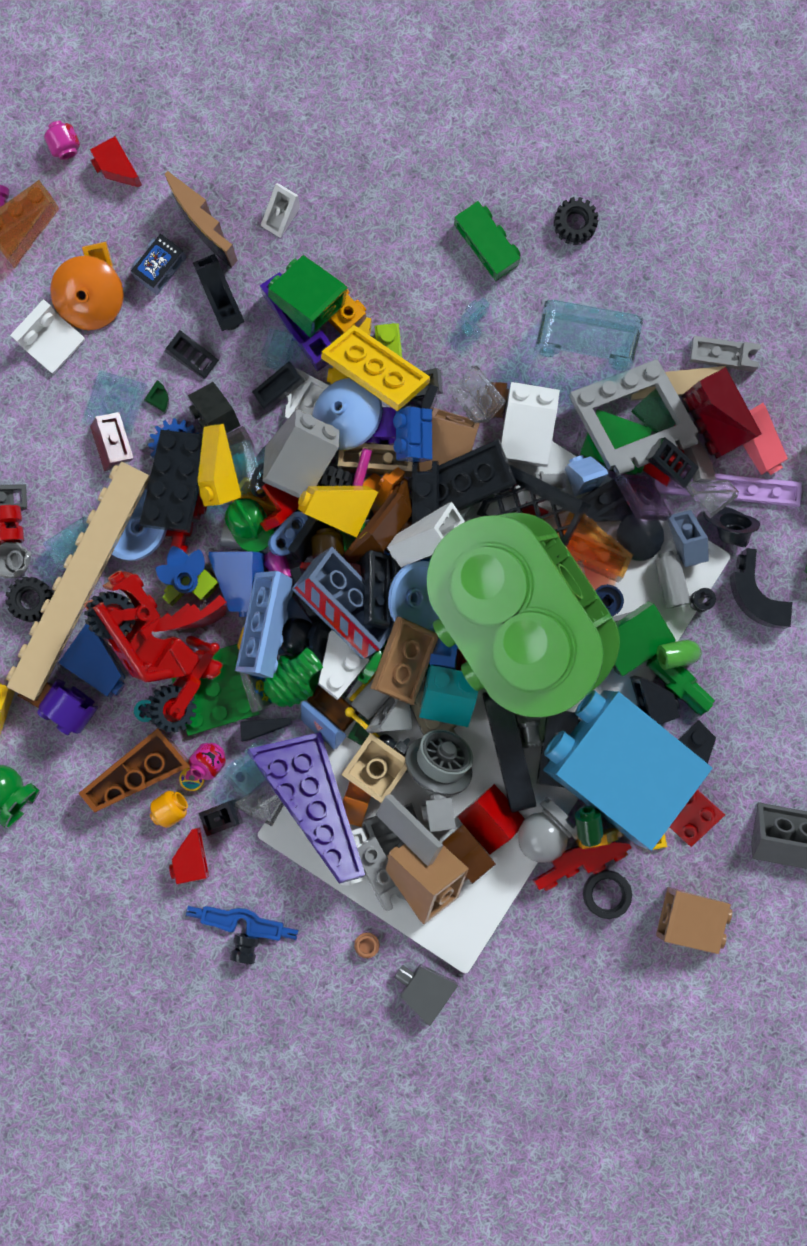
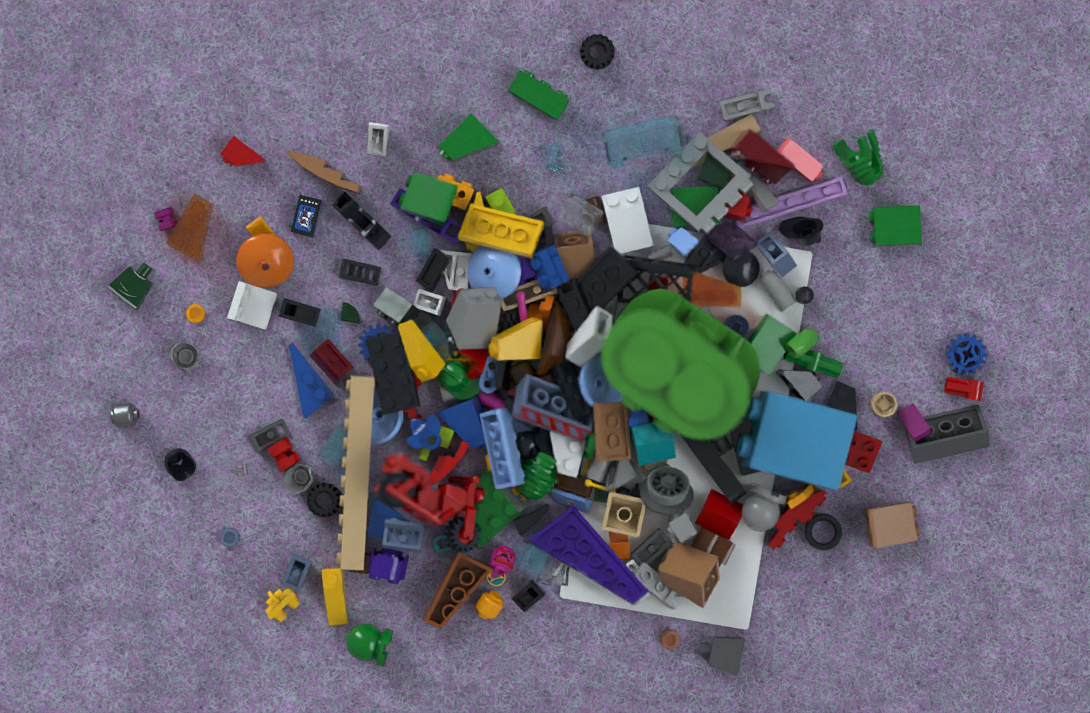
camera: 15 degrees left, 5 degrees up
(62, 140) = (194, 153): dark pink head -> none
(74, 462) = (310, 386): none -> blue wing
(98, 367) = (299, 312): none -> black slope
(100, 678) = (403, 535): none -> sand blue bracket
(190, 859) = (520, 633): red slope -> none
(228, 920) = (565, 663): blue piece -> none
(244, 948) = (585, 678): black wheel -> none
(258, 423) = (430, 302): none -> white slope
(382, 253) = (467, 139): none -> green slope
(409, 829) = (665, 547): light grey tile -> none
(589, 826) = (788, 492): dark green brick -> none
(654, 458) = (727, 204): black slope -> none
(712, 494) = (779, 217): clear slope -> none
(744, 770) = (883, 404): none -> tan wheel
(751, 600) = (843, 281): black arch -> none
(772, 808) = (914, 422): none -> magenta tile

